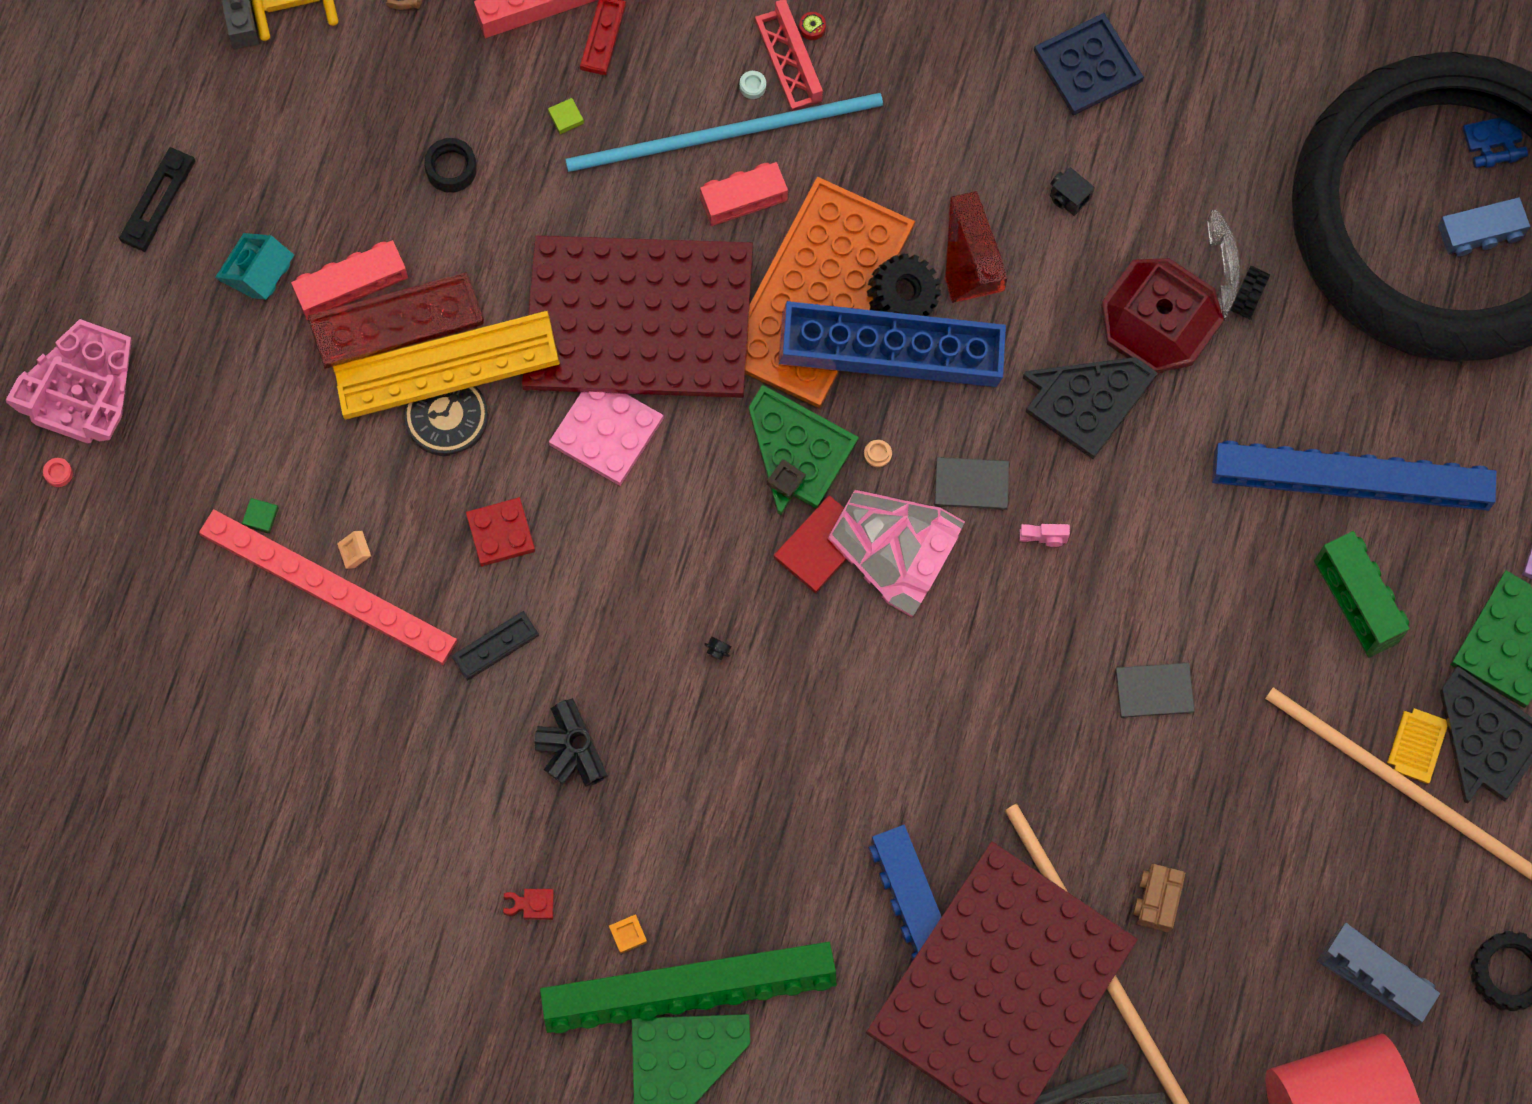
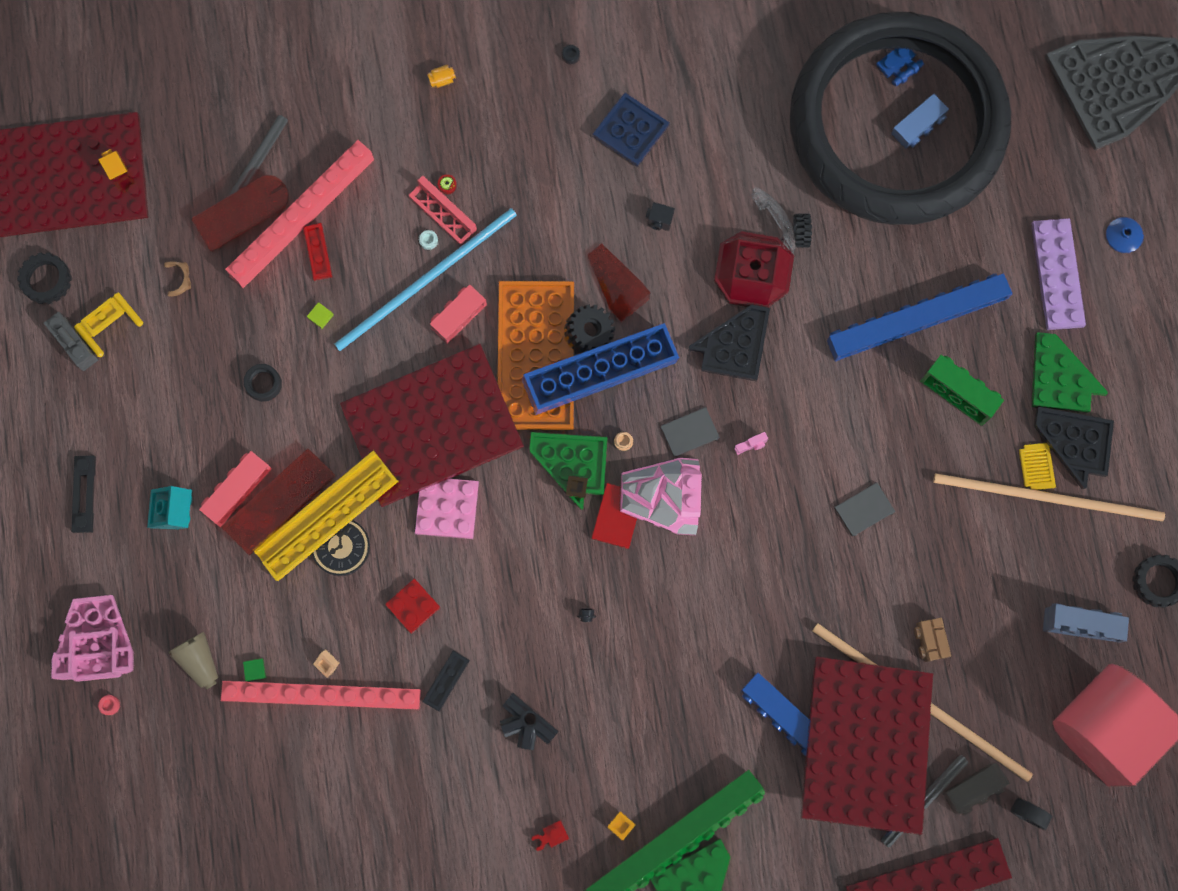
camera: 25 degrees left, 5 degrees up
(194, 466) = (196, 660): none -> dark tan cone

